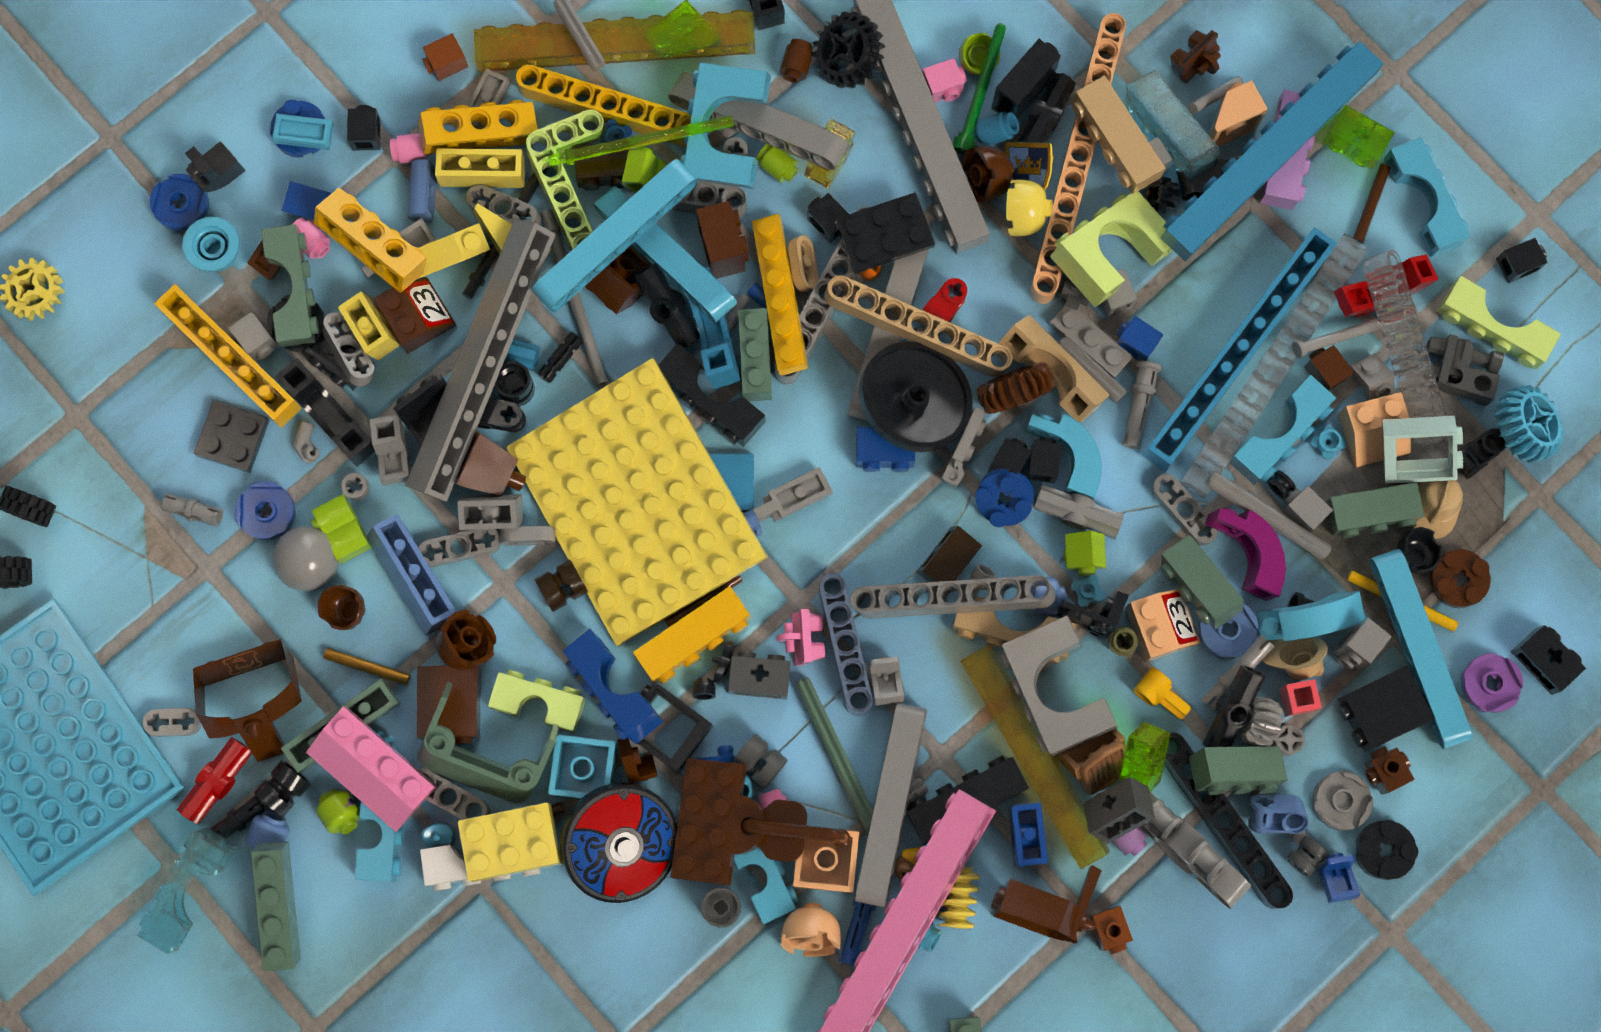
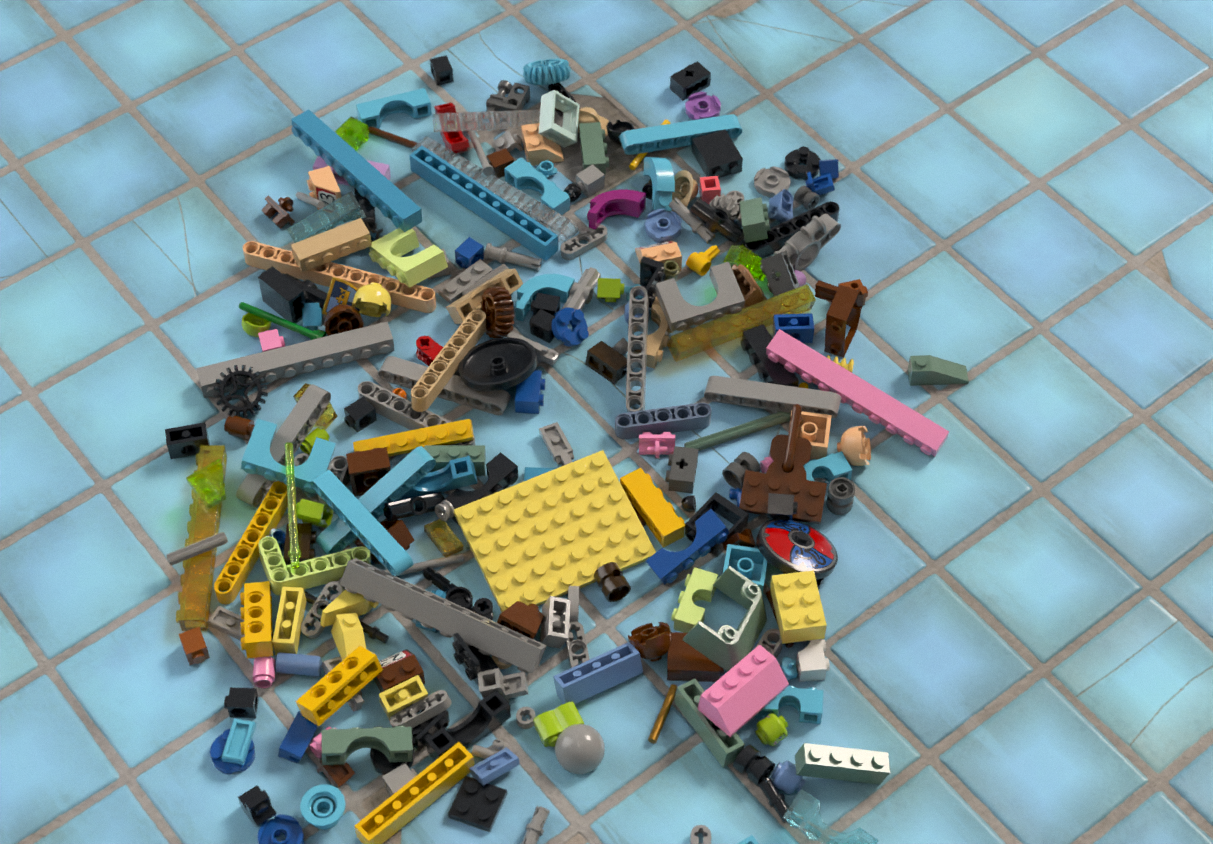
camera: 85 degrees left, 25 degrees down
(214, 781) = (747, 814): red piece -> none
(254, 499) = (540, 790): blue plate -> none
(258, 727) = (716, 776): reddish brown piece -> none
(278, 451) = (494, 766): none -> medium blue plate
(341, 607) = (619, 722): reddish brown hair -> none
(627, 353) = (443, 538): none -> clear yellow plate
(662, 348) = (444, 510): none -> light grey bush
(677, 817) = (781, 506): none -> black brick
(723, 662) = (672, 490): black piece -> none
(803, 263) = (387, 430): tan plate -> none
(848, 953) = (846, 423): blue pin -> none
(885, 233) = (379, 376): black plate -> none
(886, 680) = (689, 397): light grey bracket -> none
(1073, 295) = (434, 282): dark grey gear -> none
(1201, 583) = (634, 230): sand green brick -> none
(1275, 519) = (584, 204): light grey axle -> none
(1361, 645) = (679, 154): light grey brick -> none
(1374, 893) = (829, 167): none -> blue tile
(1391, 778) = (755, 154): reddish brown brick -> none
(1467, 307) = (470, 96): yellowish green arch -> none
(1470, 592) = (634, 109): reddish brown plate -> none

